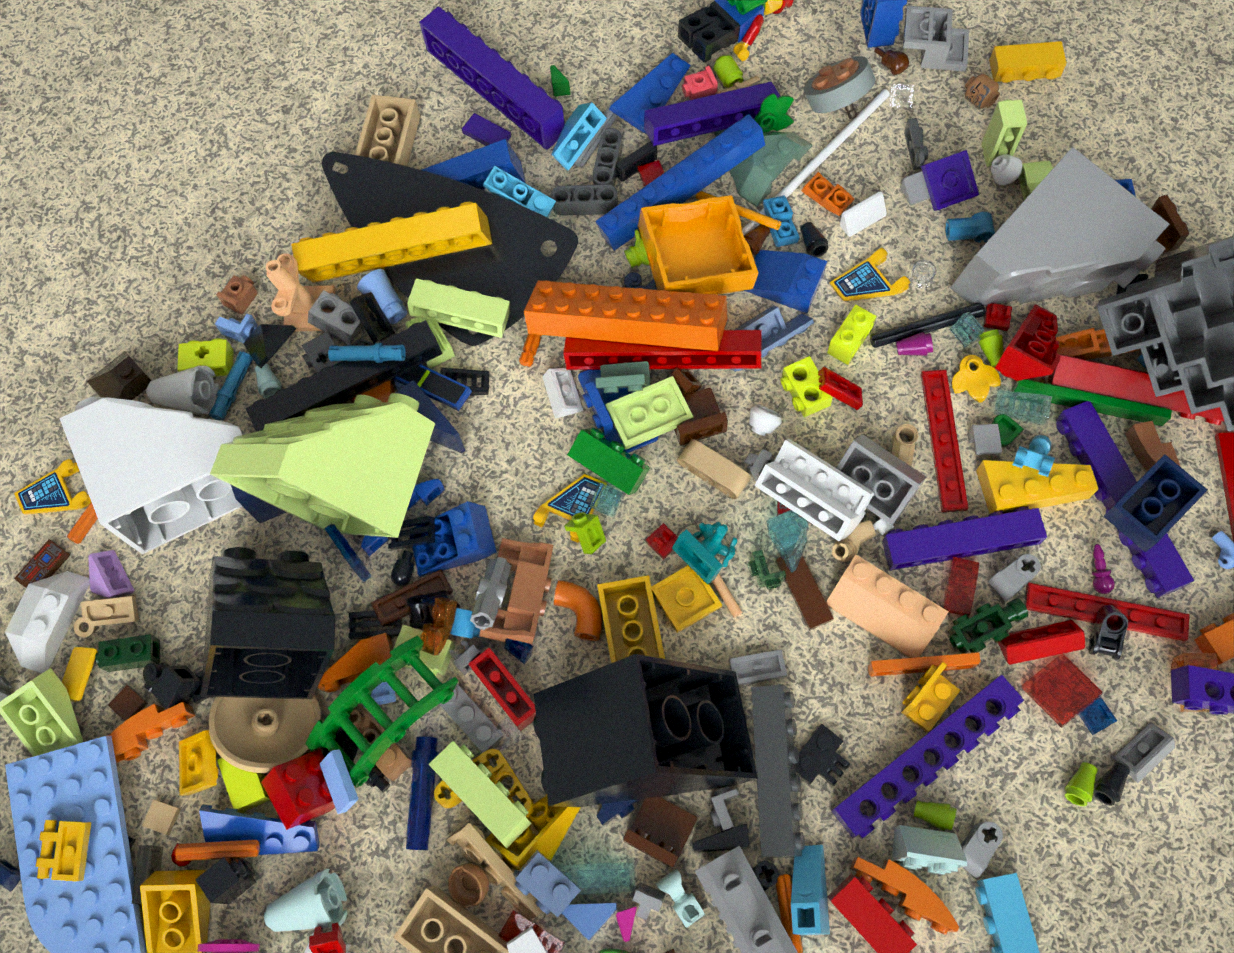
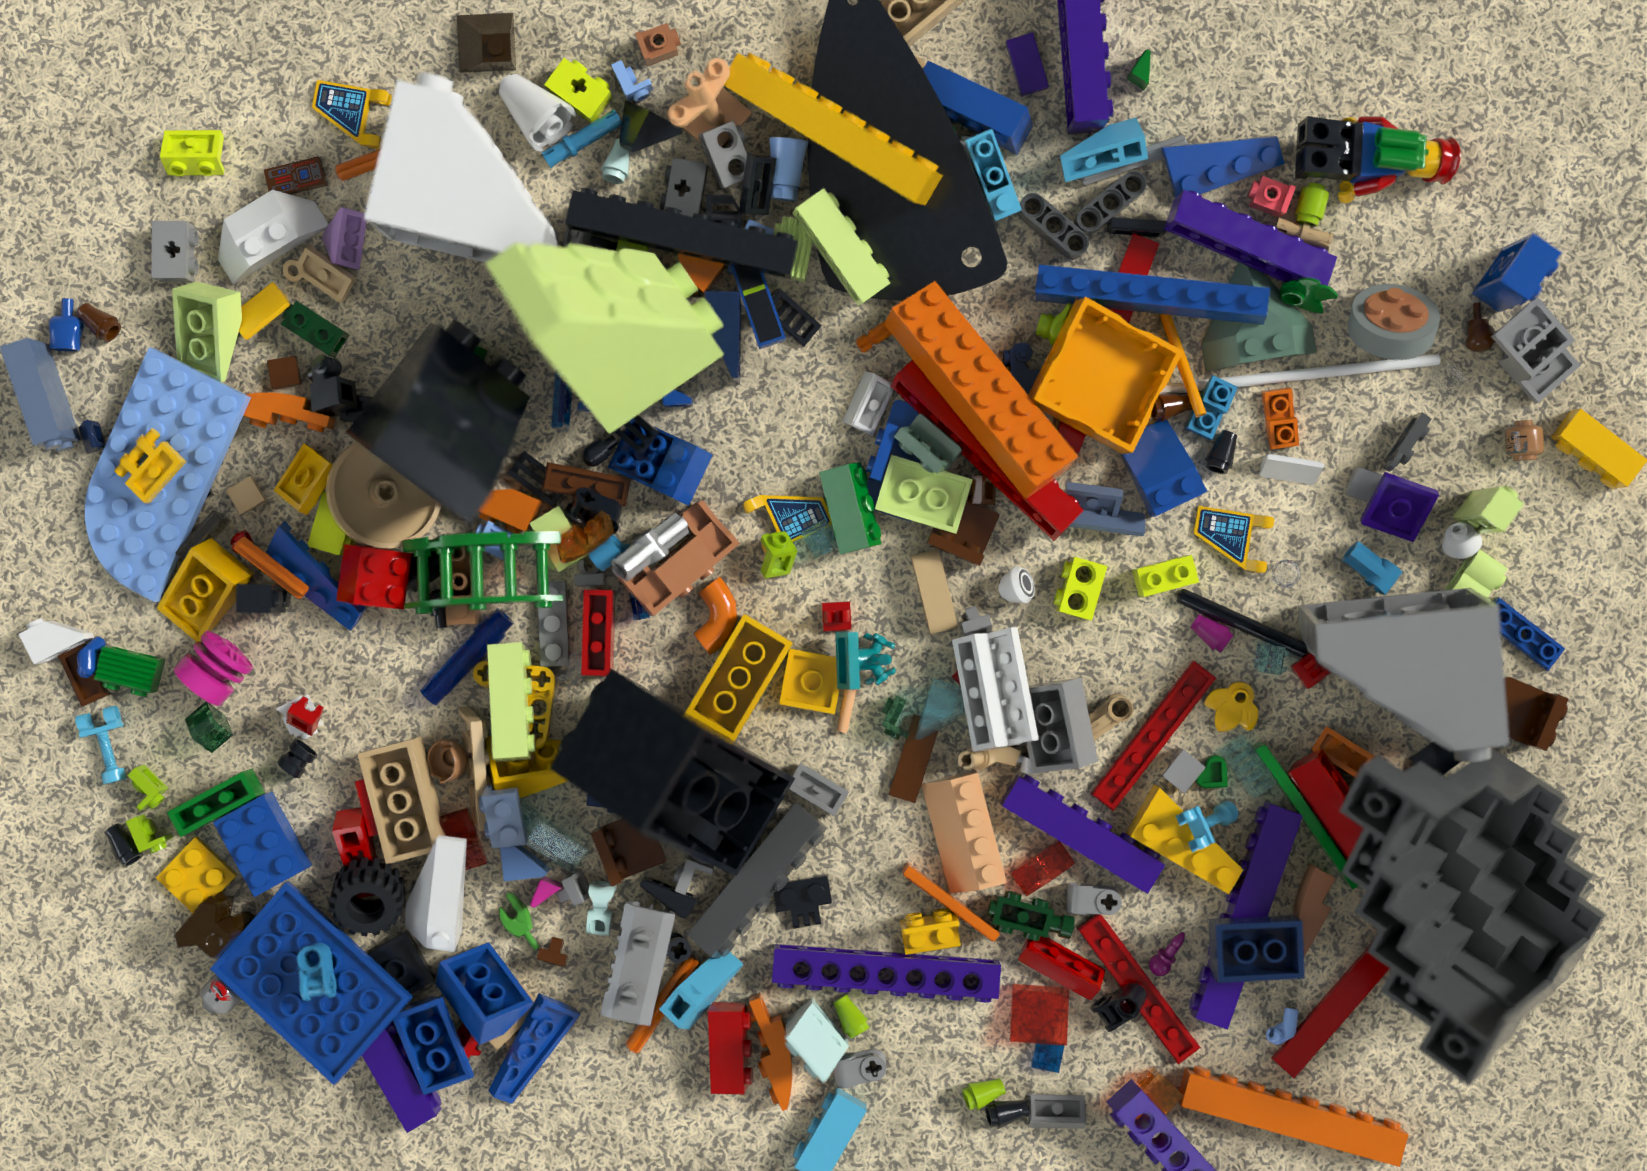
camera: 30 degrees right, 20 degrees up
(309, 905) = (312, 671): light aqua cone -> none
(338, 781) = (405, 599): light blue tile -> none
(367, 353) = (727, 240): dark azure pin -> none
(840, 388) = (1104, 622): red tile -> none
(992, 346) = (1275, 694): lime cone -> none
(1033, 347) = (1305, 728): red wedge -> none

